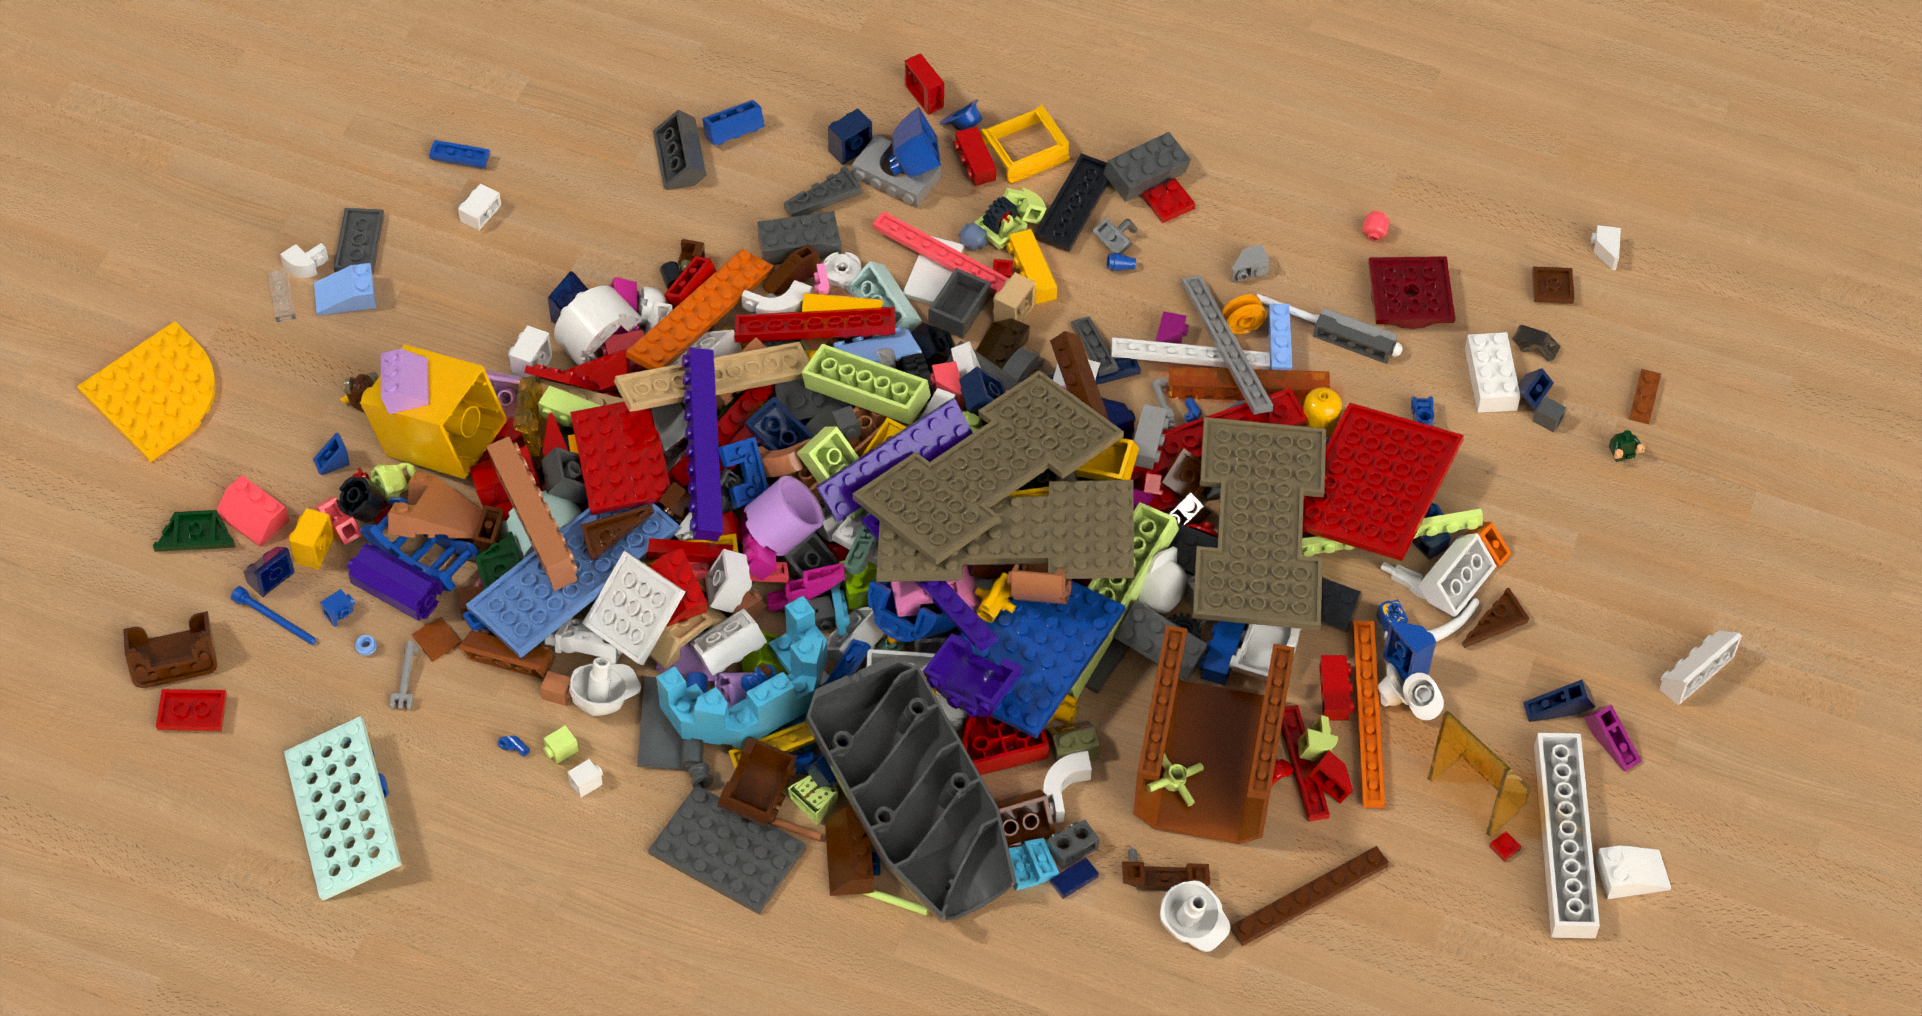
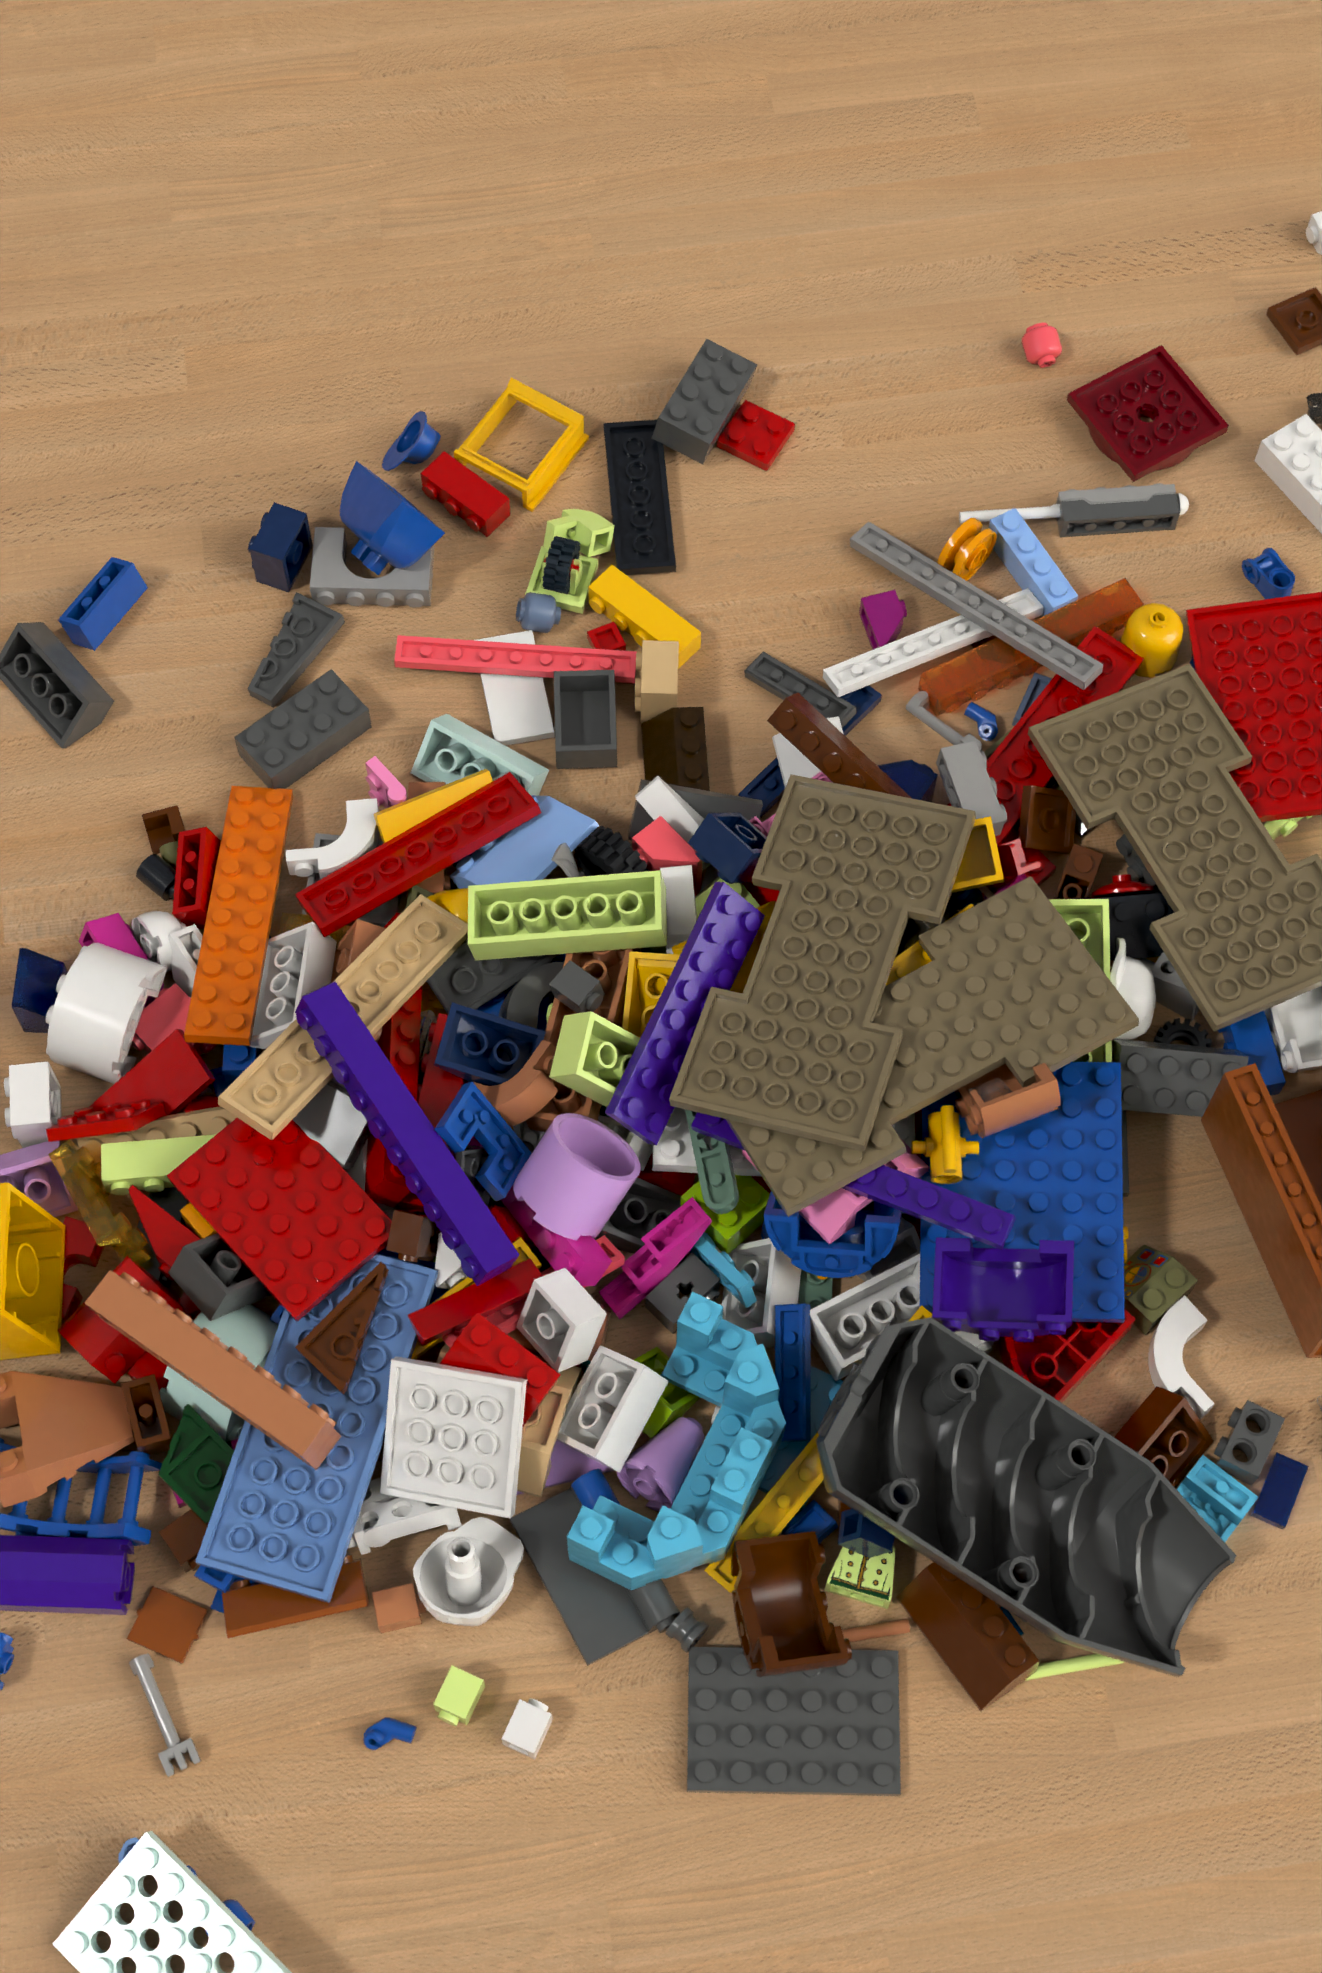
camera: 30 degrees left, 10 degrees up
(365, 640) = (62, 1689): light blue plate -> none
(749, 681) = (695, 1446): blue hair -> none
(798, 266) = (327, 784): reddish brown slope -> none
(842, 278) = (387, 732): white plate -> none
(924, 83) = (333, 421): red window -> none
(934, 343) = (593, 796): black slope -> none
(1022, 363) = (729, 767): dark grey arch -> none
(1113, 236) = (721, 521): plate -> none
(1120, 262) = (752, 554): blue cone -> none
(1250, 263) = (921, 473): light grey slope -> none

